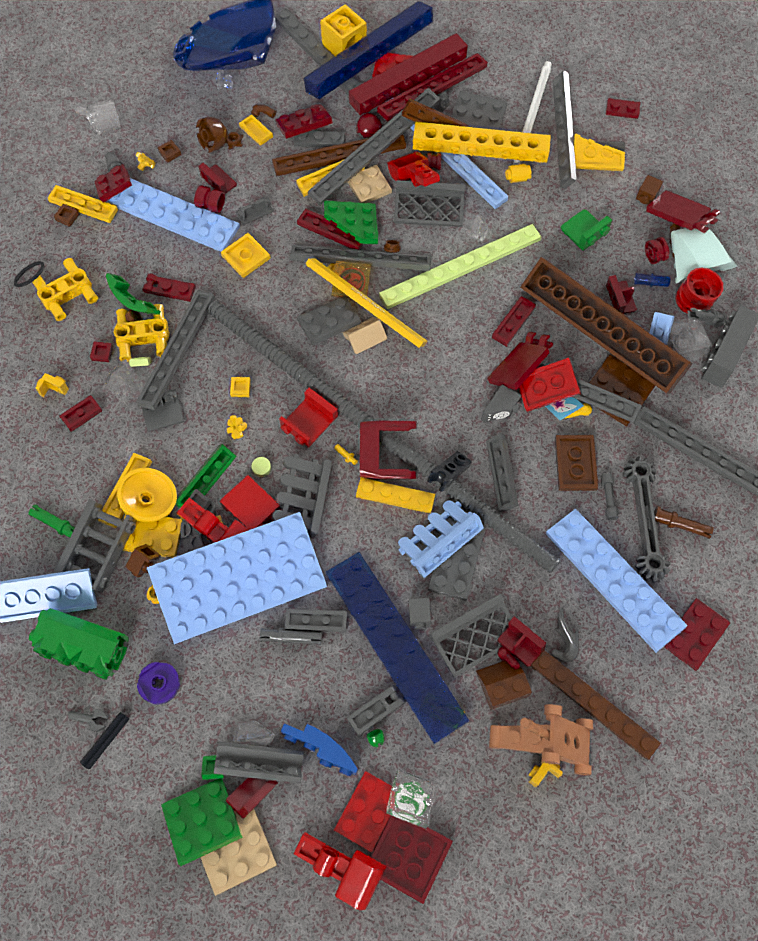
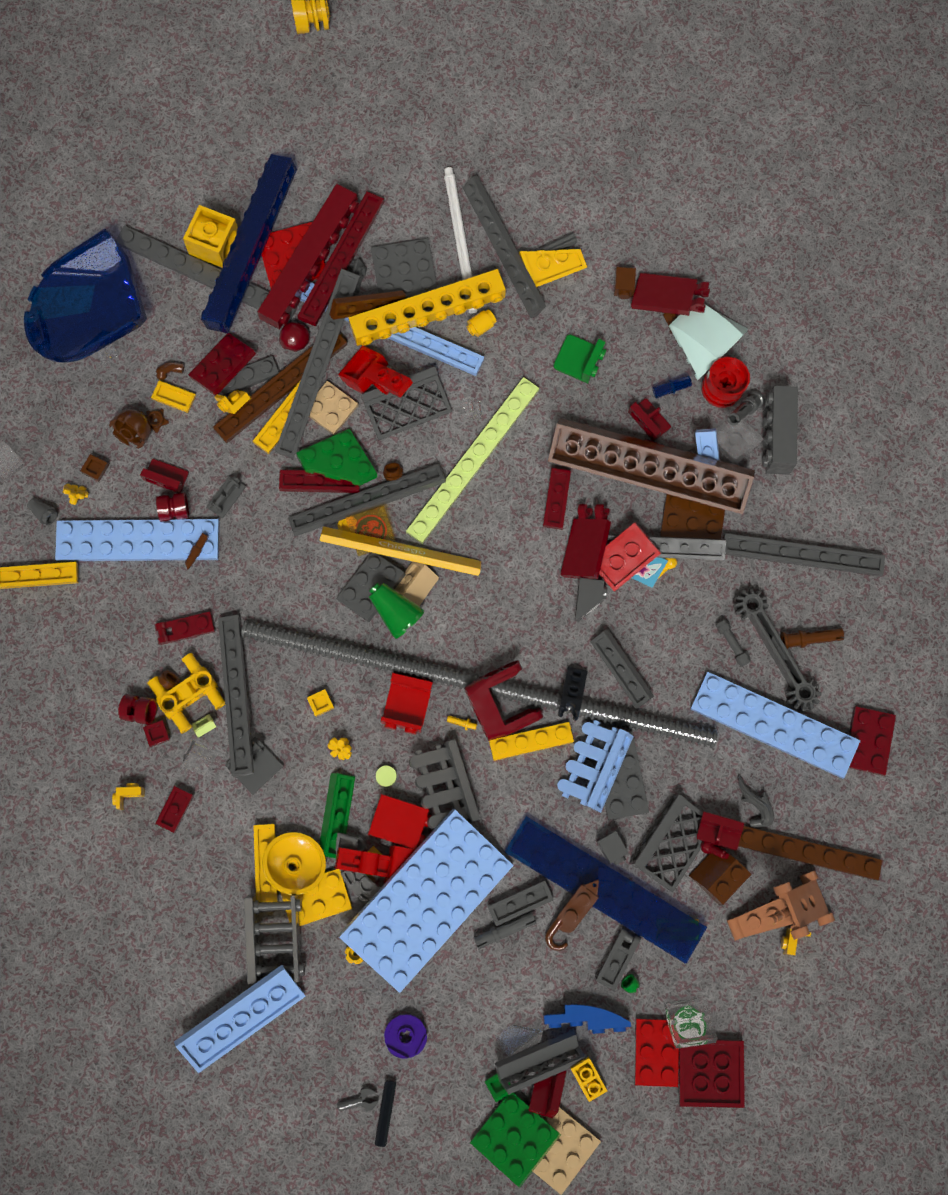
camera: 30 degrees left, 10 degrees up
(31, 279) = (18, 681): black piece -> none
(62, 526) = (211, 933): green pin -> none
(64, 289) = (76, 683): yellow piece -> none
(66, 215) = (26, 597): reddish brown plate -> none
(78, 643) = (312, 1039): green brick -> none
(96, 325) = (137, 709): none -> dark red wheel
(112, 183) = (57, 537): dark red plate -> none
(120, 290) = (133, 654): green slope -> none
(141, 559) = (326, 929): reddish brown brick -> none
(208, 235) = (196, 550): none -> reddish brown piece
(245, 255) = (245, 553): yellow plate -> none
(294, 801) = (588, 1079): none -> yellow slope
(299, 147) = (234, 402): none -> yellow bracket
(337, 340) = (394, 609): none -> green cone
(357, 649) = (573, 913): none -> reddish brown plate
(357, 875) = (677, 1114): red plate -> none
(434, 160) = (386, 348): dark red wheel -> none
(576, 463) = (686, 623): reddish brown plate -> none
(623, 108) = (552, 190): dark red plate -> none
(657, 250) = (663, 351): dark red wheel -> none

